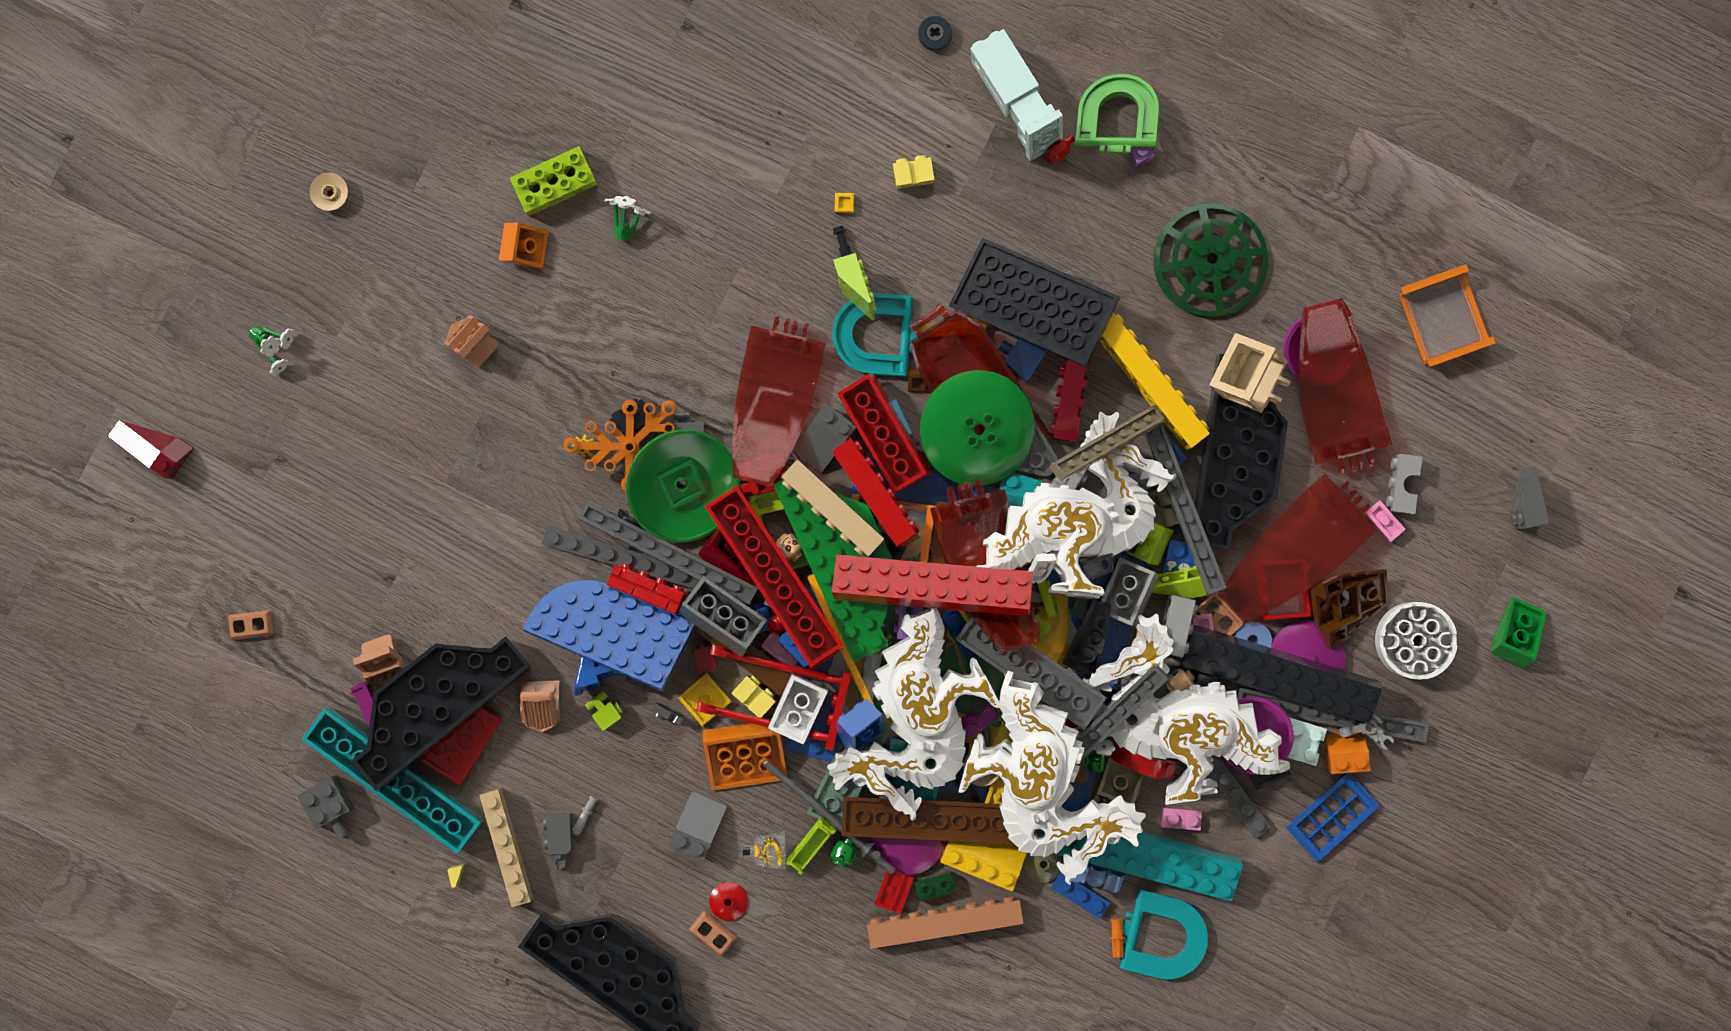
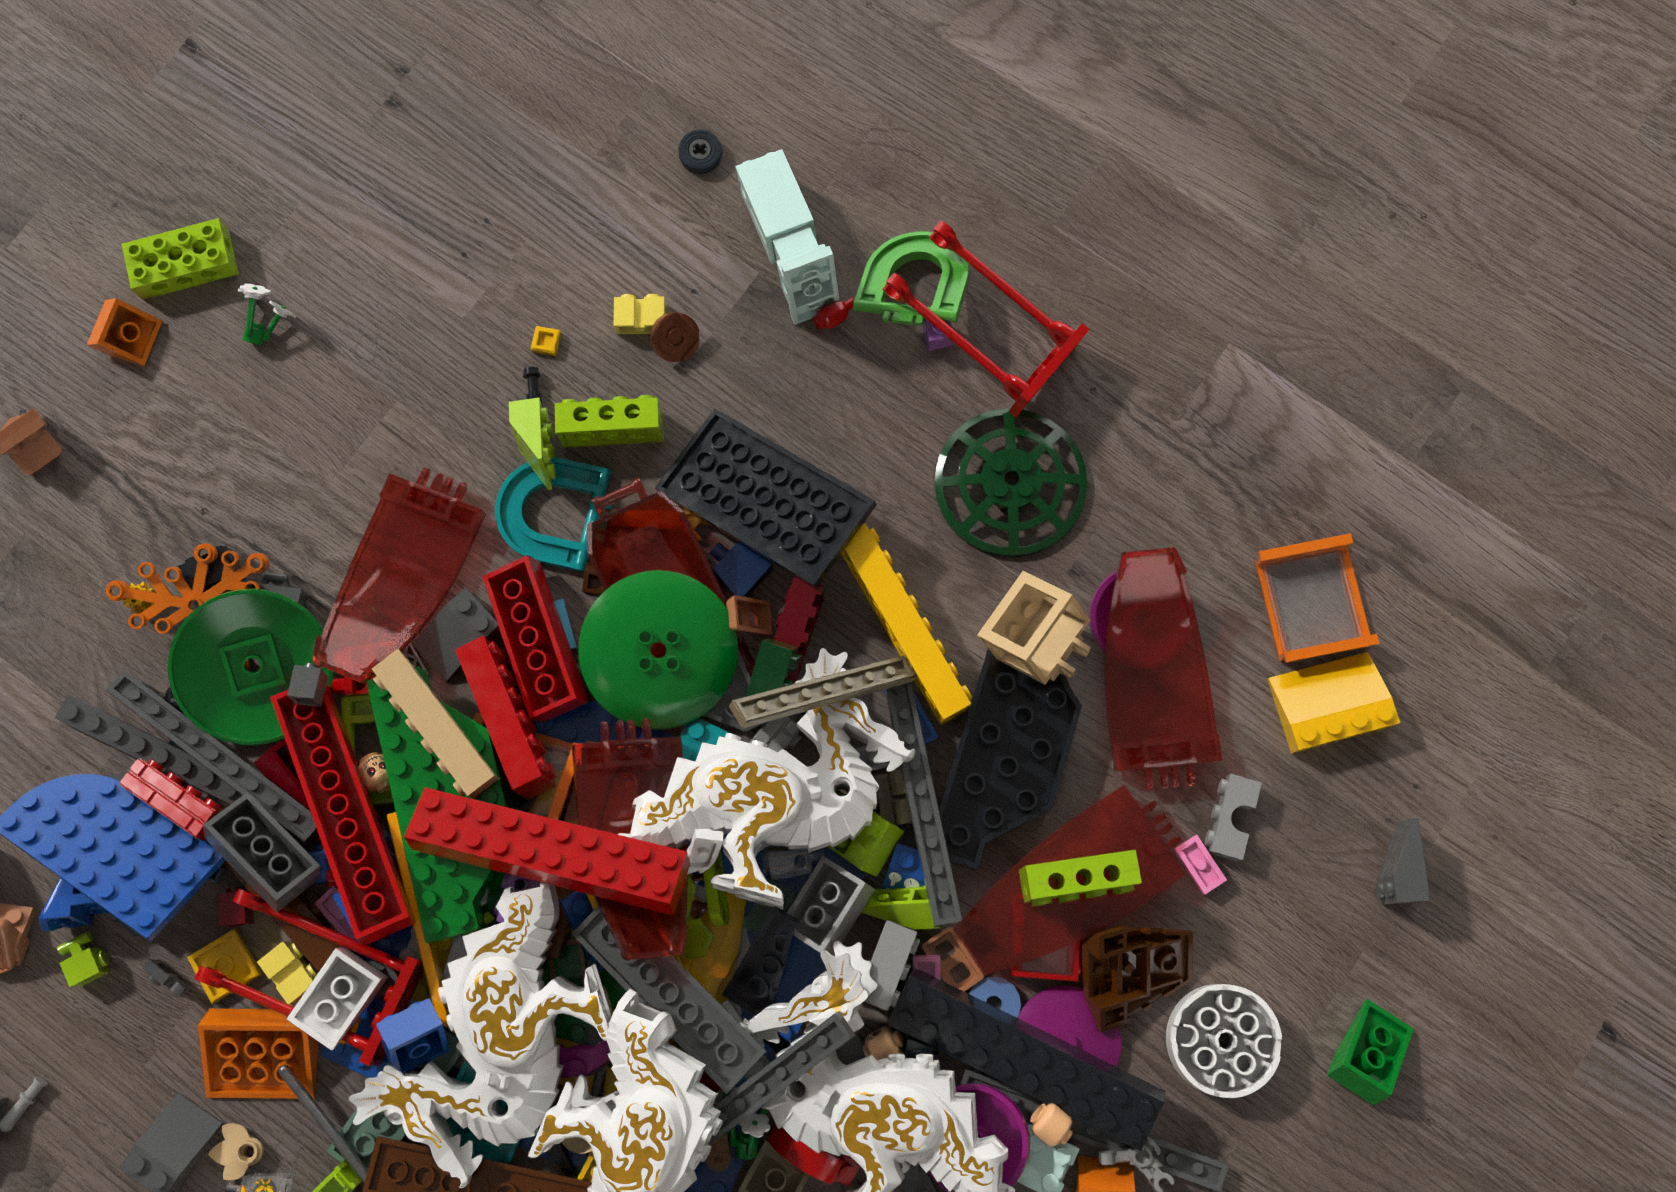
camera: 15 degrees right, 10 degrees down
(732, 493) = (307, 685): none -> dark grey brick
(739, 824) = (233, 1151): none -> tan plate
(901, 269) = (609, 421): none -> lime brick
(943, 187) = (675, 337): none -> copper tile
(1043, 389) = (761, 612): none -> nougat piece
(1063, 434) = (773, 666): none -> dark green brick
(1230, 167) = (1059, 332): none -> red piece
(1306, 715) = (1051, 1124): none -> light nougat head
(1333, 535) = (1121, 866): none -> lime brick
(1465, 389) = (1332, 702): none -> yellow slope

